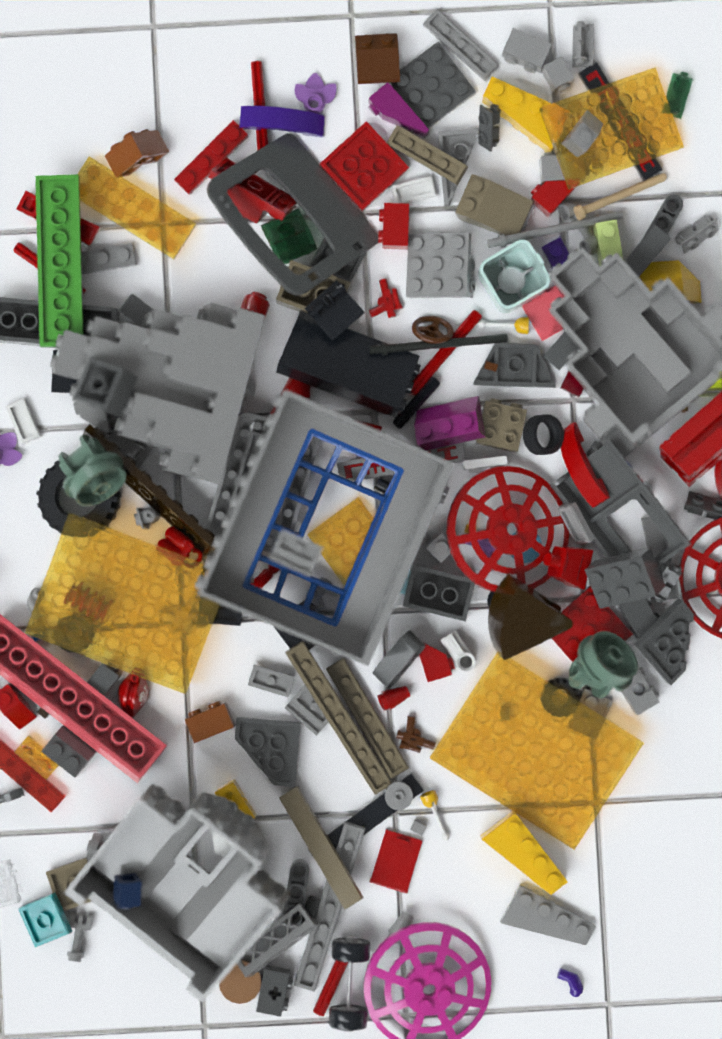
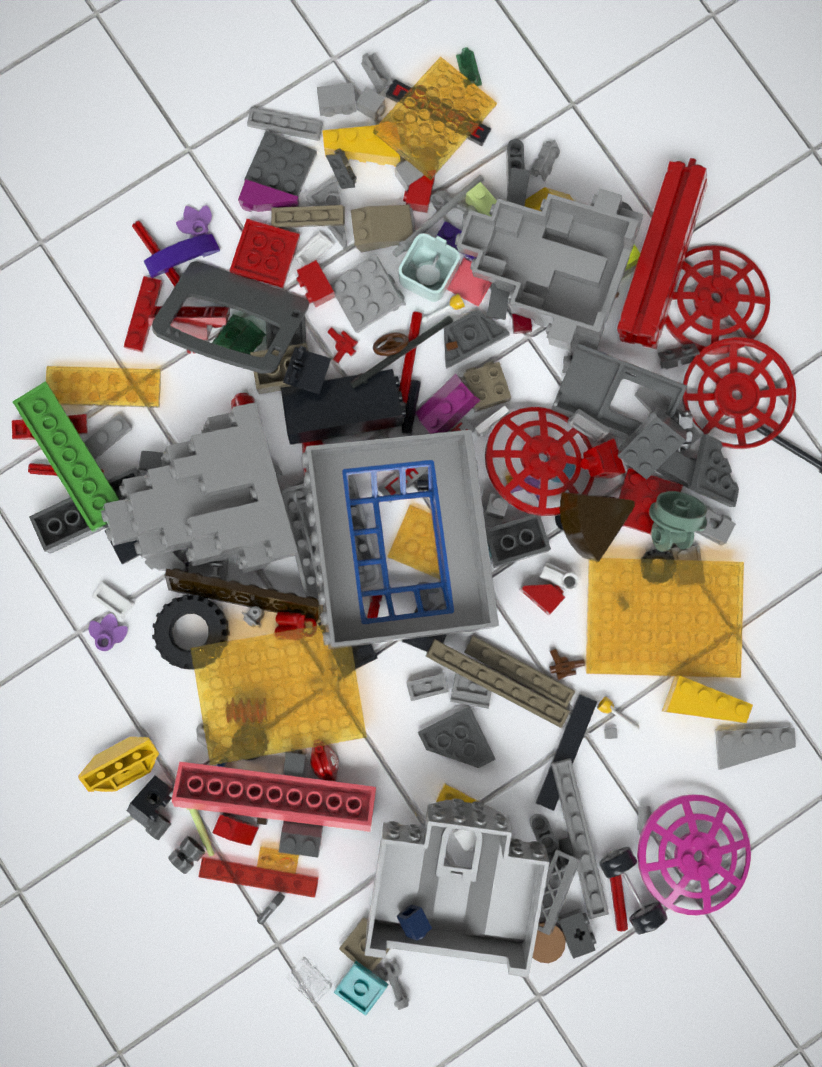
camera: 40 degrees left, 5 degrees down
(91, 472) = (190, 604): sand green piece -> none
(94, 844) = (365, 902): light grey wheel -> none
(105, 387) = (162, 527): dark grey slope -> none
(135, 151) = (80, 341): dark orange brick -> none
(209, 722) = (398, 748): dark orange brick -> none
(295, 552) = (389, 568): light grey plate -> none
(321, 848) = (546, 795): dark tan tile -> none
(377, 58) = (227, 166): reddish brown slope -> none
(393, 697) = (529, 643): red cone -> none
(396, 861) = (609, 771): red container -> none
(398, 659) = (517, 610): dark grey beam -> none
(398, 795) = (581, 717): light grey wheel -> none
(530, 434) = (529, 366): black tyre -> none
(573, 980) = (808, 784): dark purple arm -> none
(580, 212) = (449, 192): tan bar -> none
(580, 469) = (566, 381): red slope -> none
(583, 134) = (417, 131): light grey slope -> none

